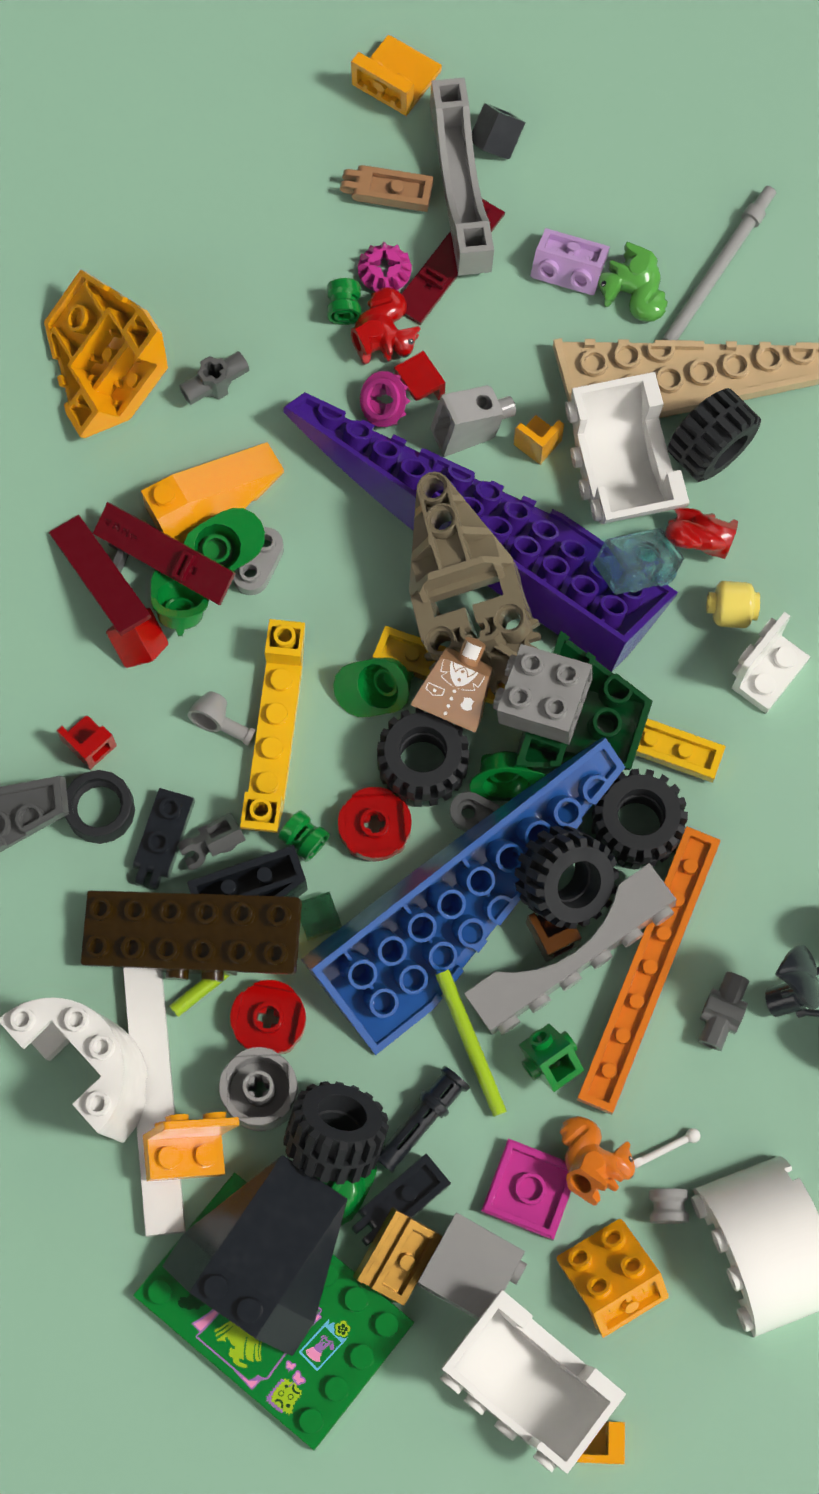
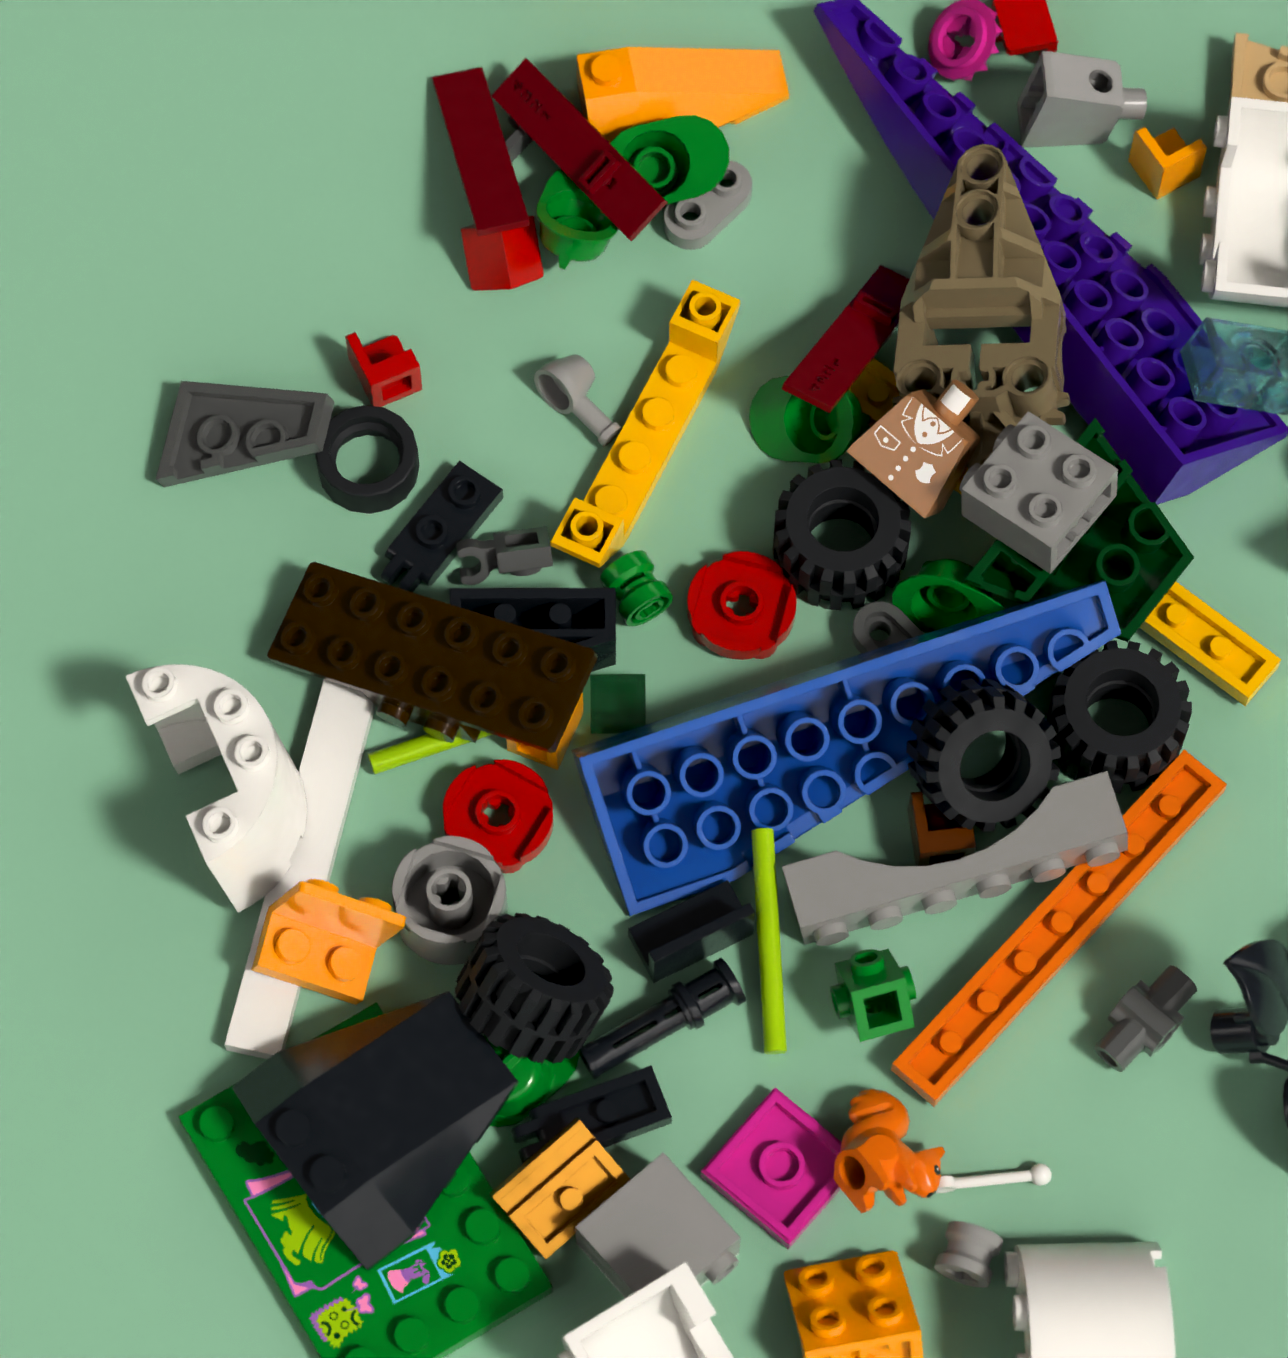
camera: 20 degrees right, 5 degrees down
(385, 626) = (850, 342): none -> dark red piece
(418, 1052) = (692, 931): none -> black panel

